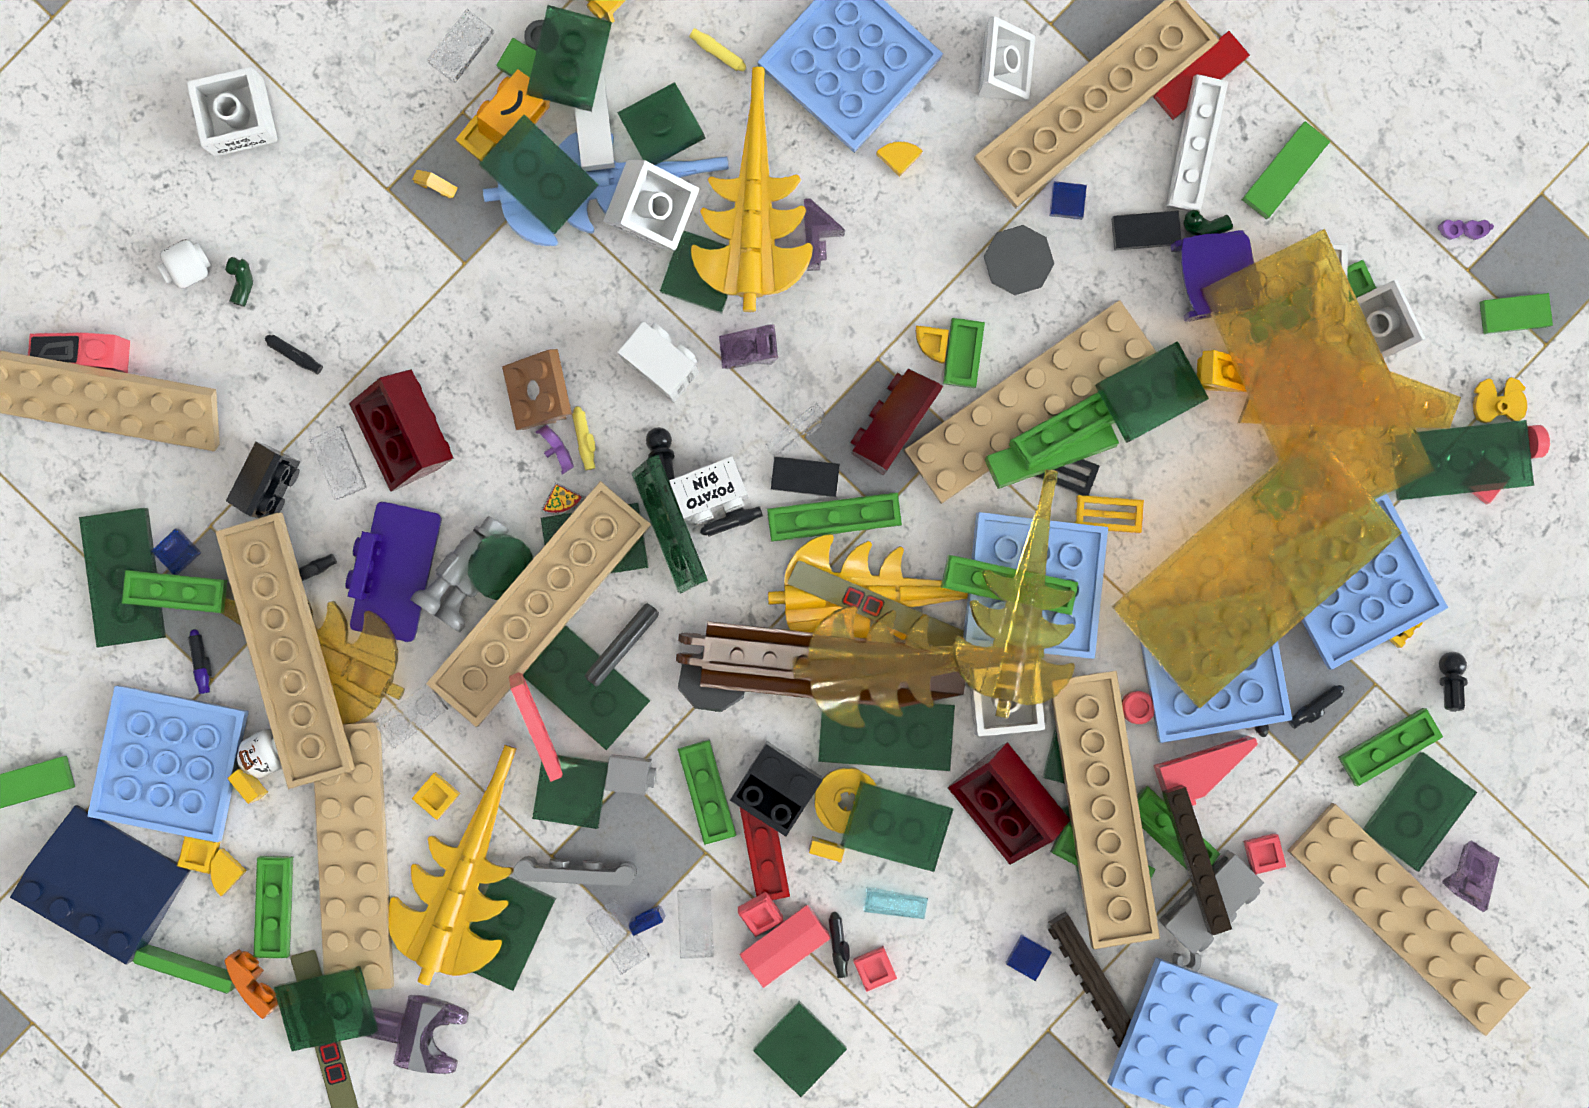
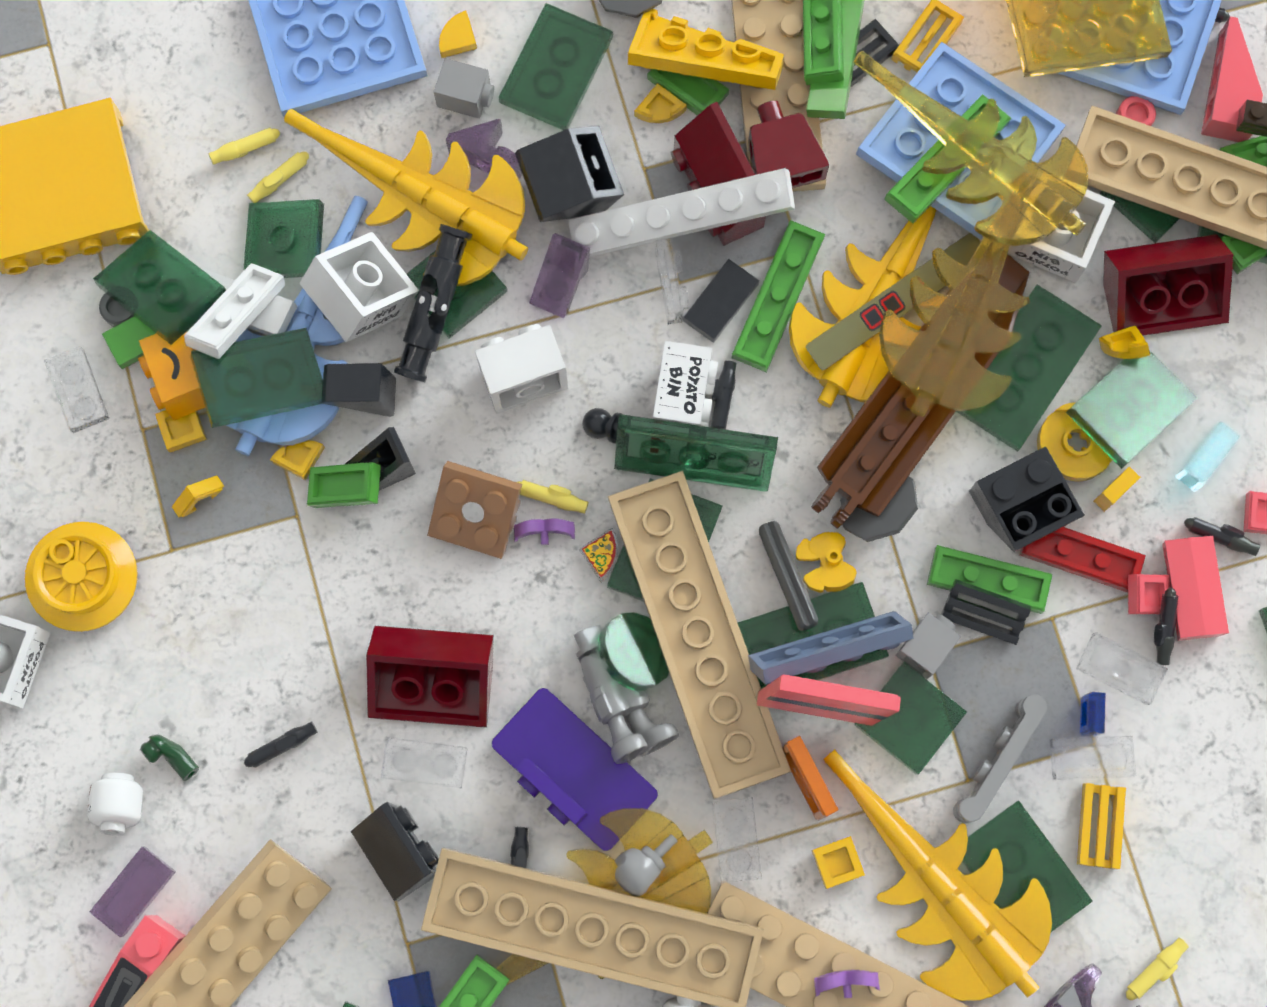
camera: 60 degrees left, 10 degrees down
(134, 314) = (132, 891): none -> clear purple tile
(327, 137) = (81, 576): none -> yellow wheel
(346, 660) = (640, 868): none -> light grey piece
(354, 846) = (846, 979): none -> medium lavender piece
(477, 743) = (809, 779): none -> orange tile
(493, 1063) = (1159, 969): none -> light yellow piece
(500, 284) = (343, 485): none -> bright green tile
(505, 239) = (298, 457): none -> yellow tile
(534, 301) = (390, 454): none -> black slope
(545, 980) = (1116, 828): none -> yellow tile
(576, 252) = (360, 387): none -> black slope
(577, 125) = (234, 311): none -> white tile
(580, 705) = (830, 647): none -> sand blue plate
(659, 662) = (834, 572): none -> yellow piece
(674, 803) = (982, 626): none -> black tile
(695, 261) = (442, 274): none -> black piece
(701, 88) = (277, 177): none -> light yellow piece
(738, 940) = (1165, 629): none -> black piece
(830, 307) = (570, 174): none -> black slope
(845, 411) = (685, 212): none -> white plate
(857, 186) = (463, 88): none -> light grey brick
(918, 245) = (556, 67): none -> clear green tile
(941, 457) = (786, 144): none -> dark red torso
(943, 796) = (1125, 344): none -> yellow tile
(985, 341) = (706, 54): none -> yellow wing

